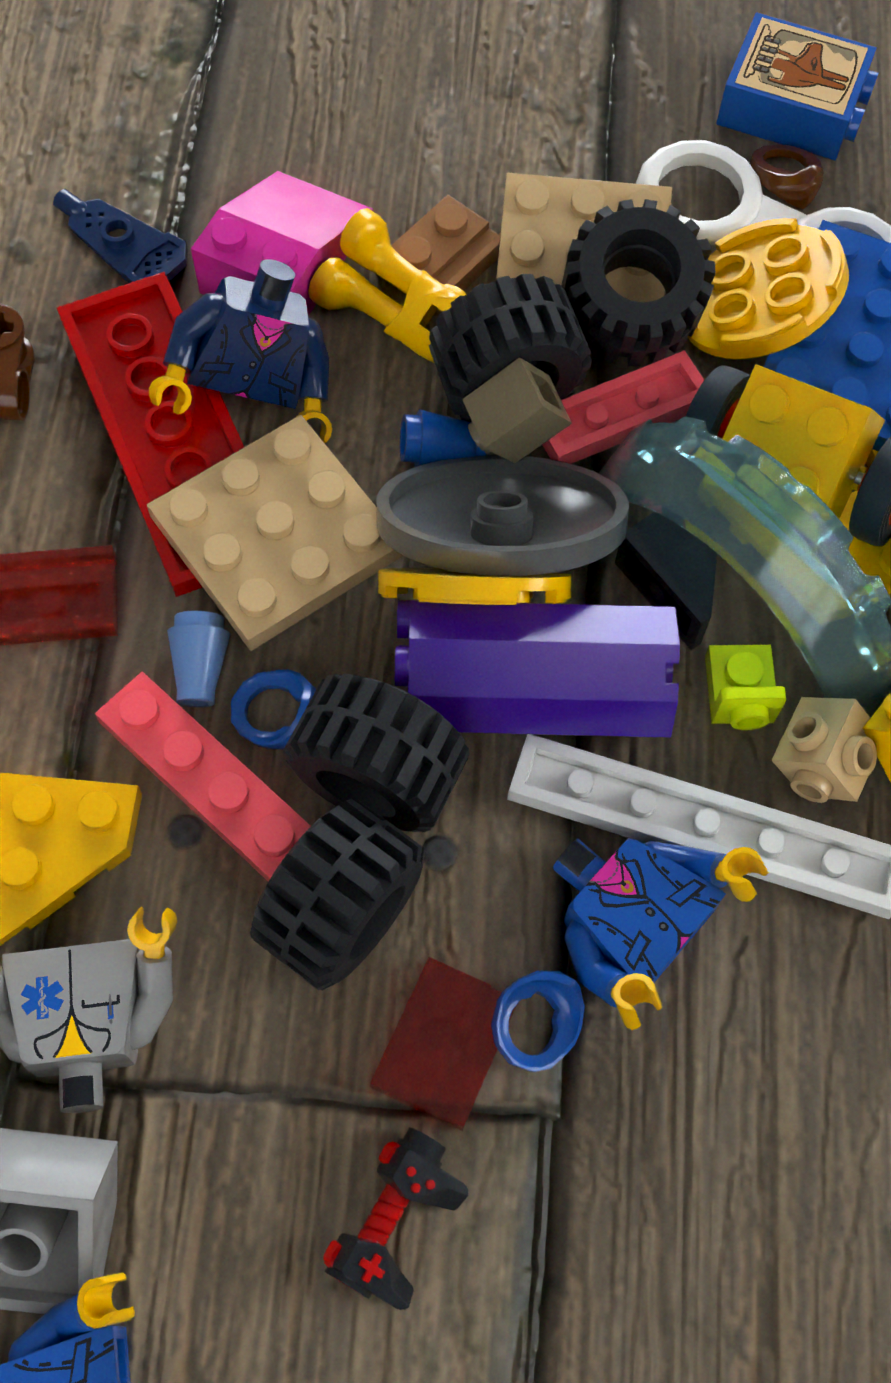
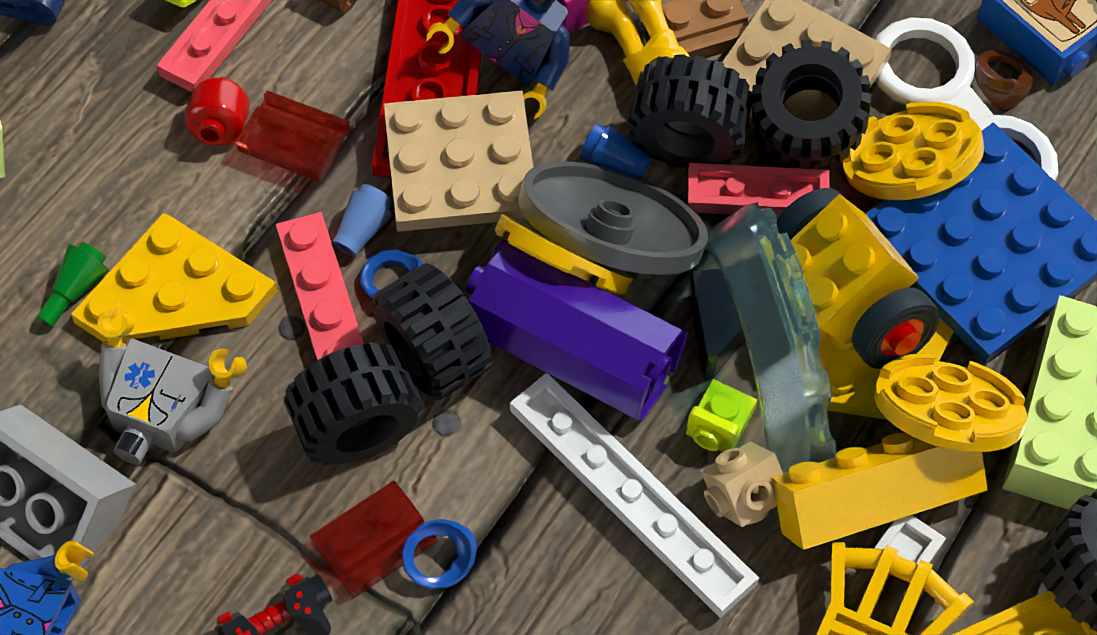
camera: 30 degrees right, 5 degrees down
(515, 411) = (667, 154): dark tan brick -> none
(643, 912) = (549, 522): blue torso -> none

